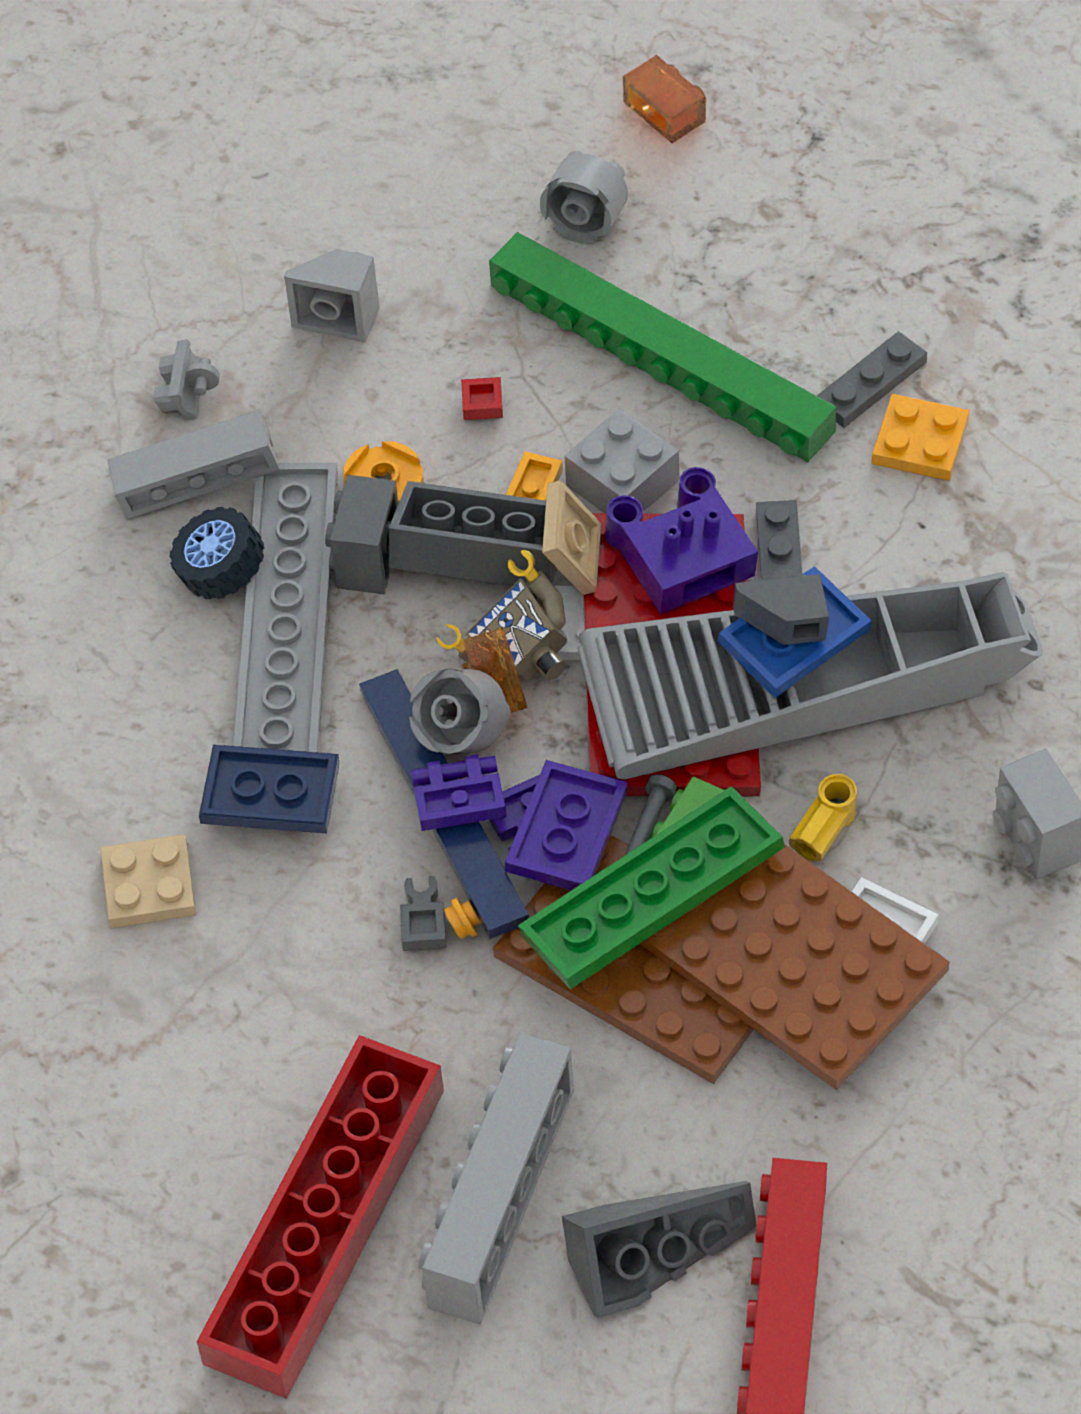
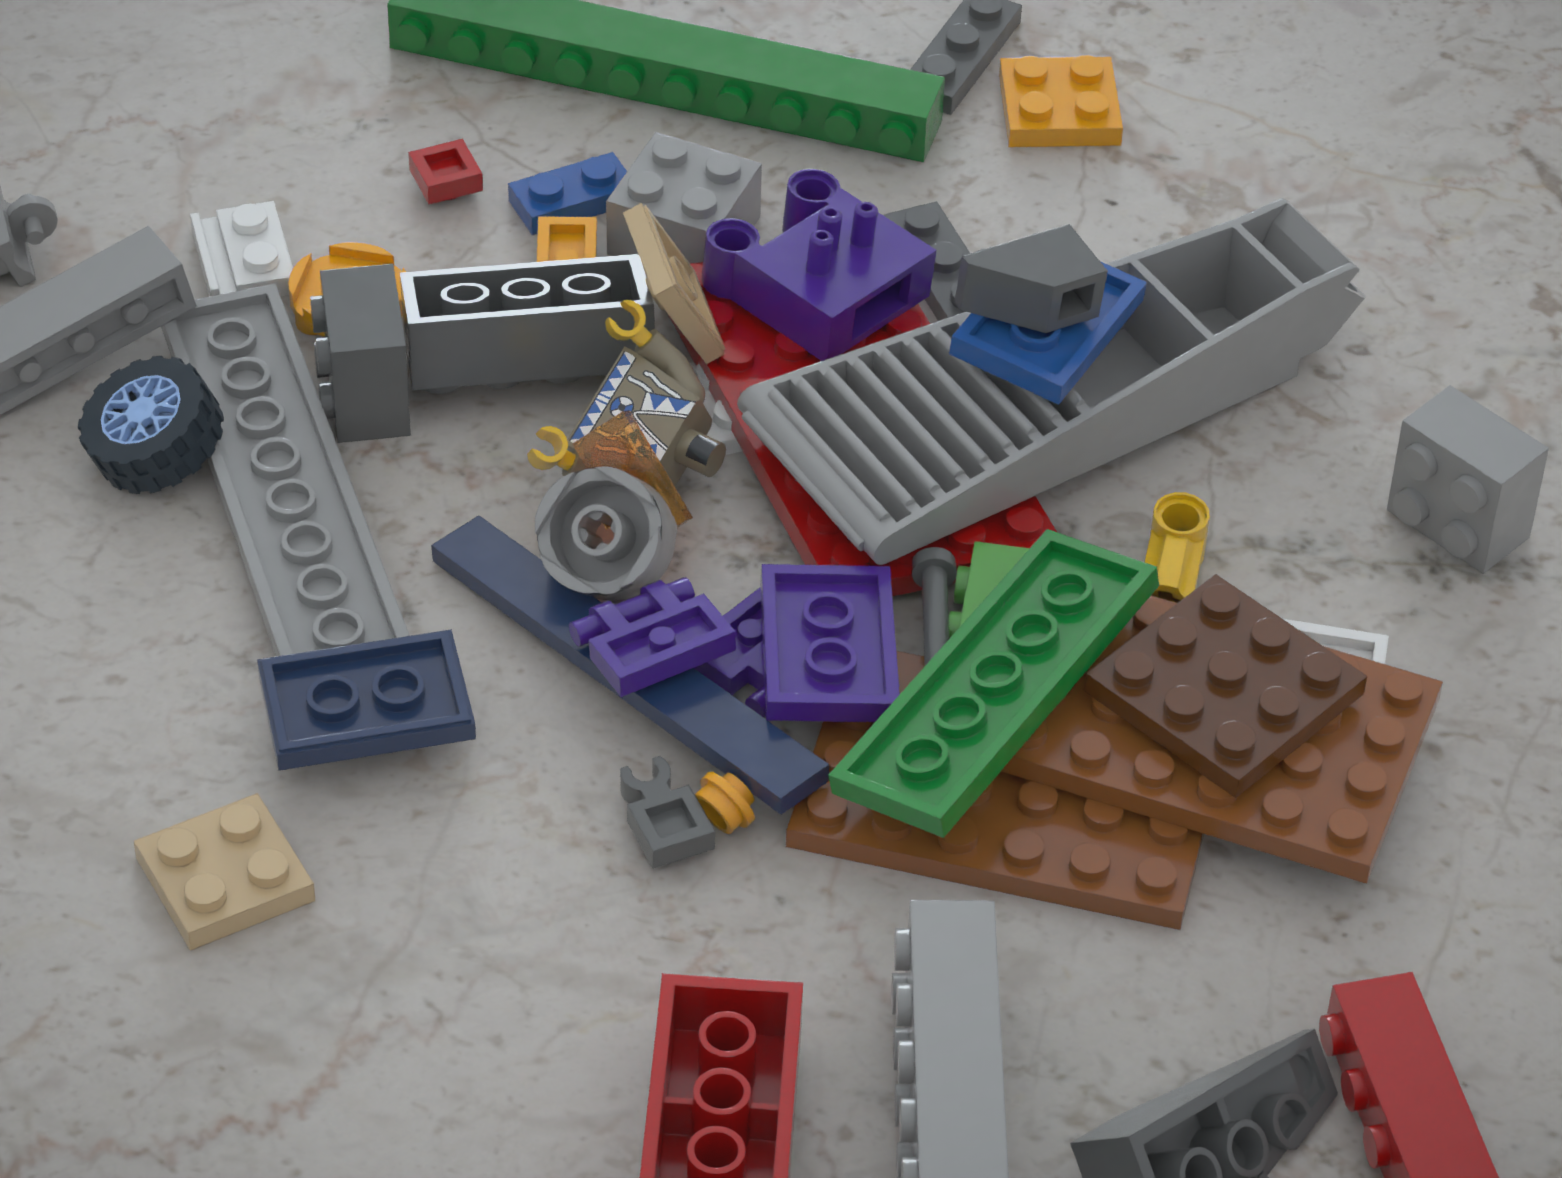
camera: 25 degrees left, 10 degrees down
(330, 428) = (242, 249): none -> white plate
(334, 295) = (183, 83): light grey slope -> none
(556, 432) = (566, 191): none -> blue plate
(798, 929) = (1225, 685): none -> reddish brown plate

